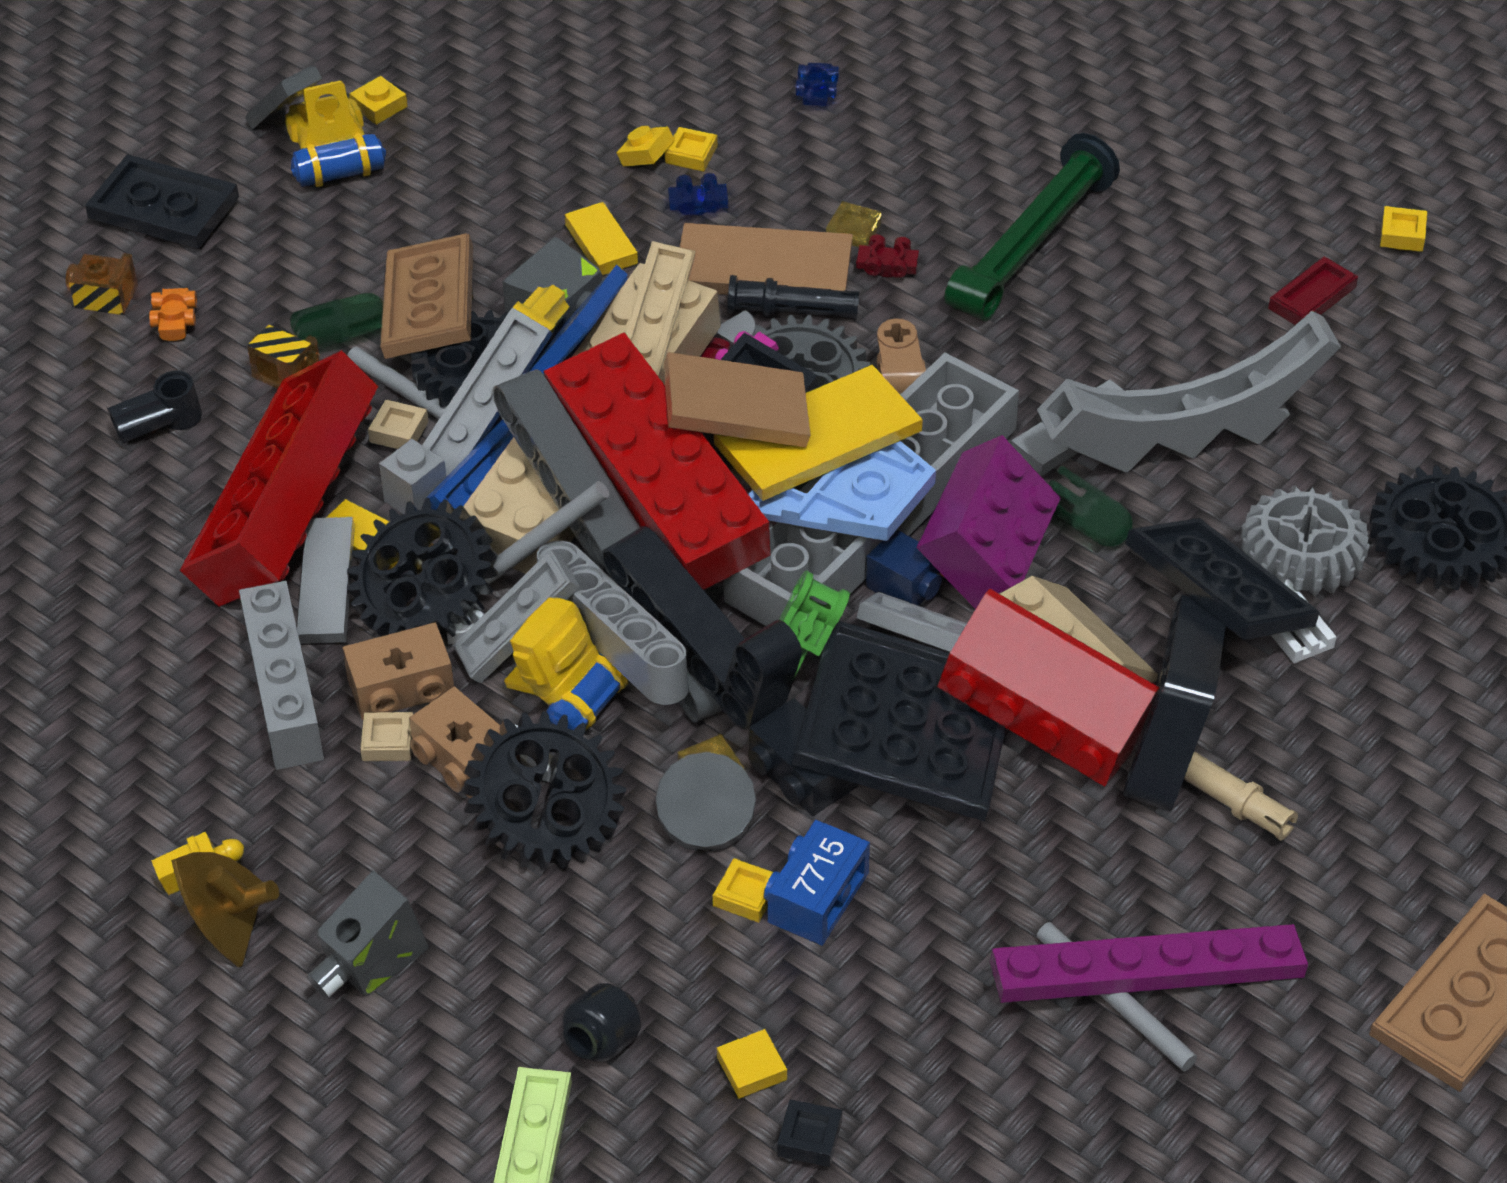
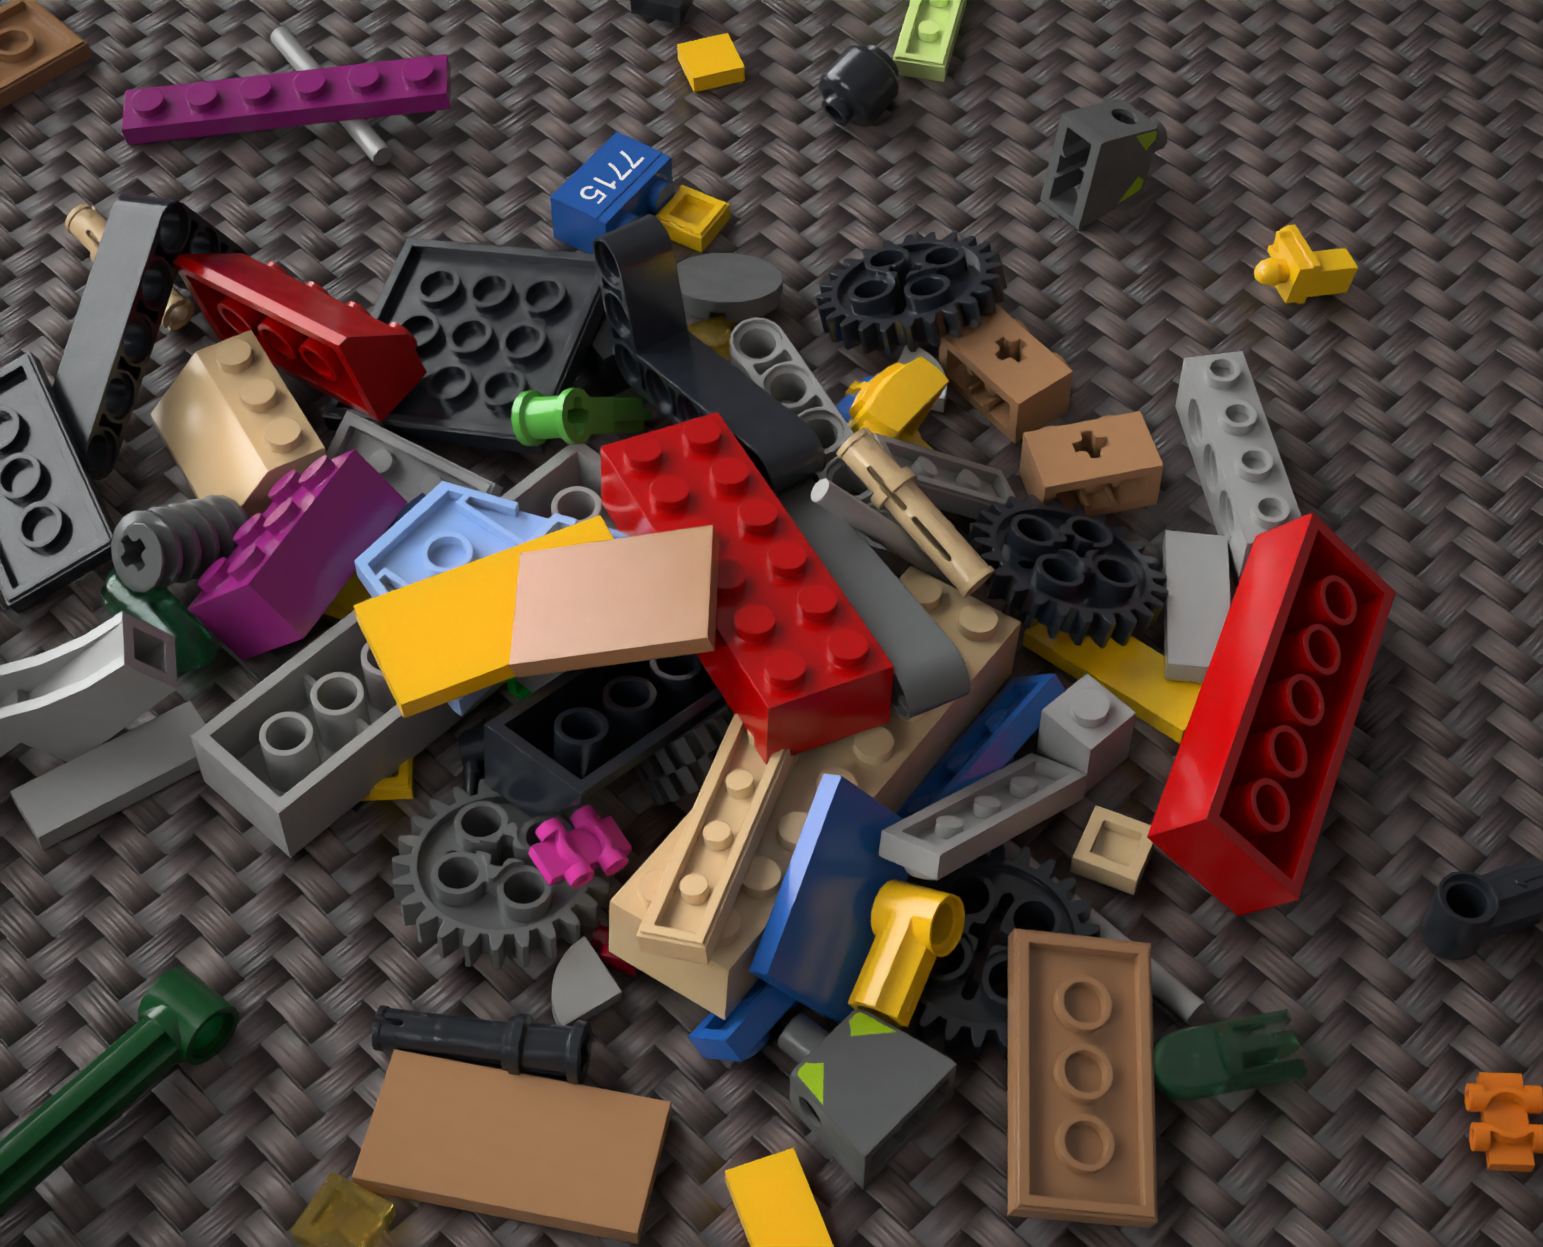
camera: 175 degrees left, 5 degrees up
(222, 899) = (1265, 205): pearl gold shield -> none
(280, 354) = (1310, 981): brick -> none
(386, 736) = (1095, 401): tan tile -> none
(543, 531) = (896, 491): none -> tan pin
(887, 261) = (306, 1125): dark red piece -> none
(899, 353) = (345, 889): medium nougat piece -> none
(1082, 533) = (175, 541): none -> dark grey piece

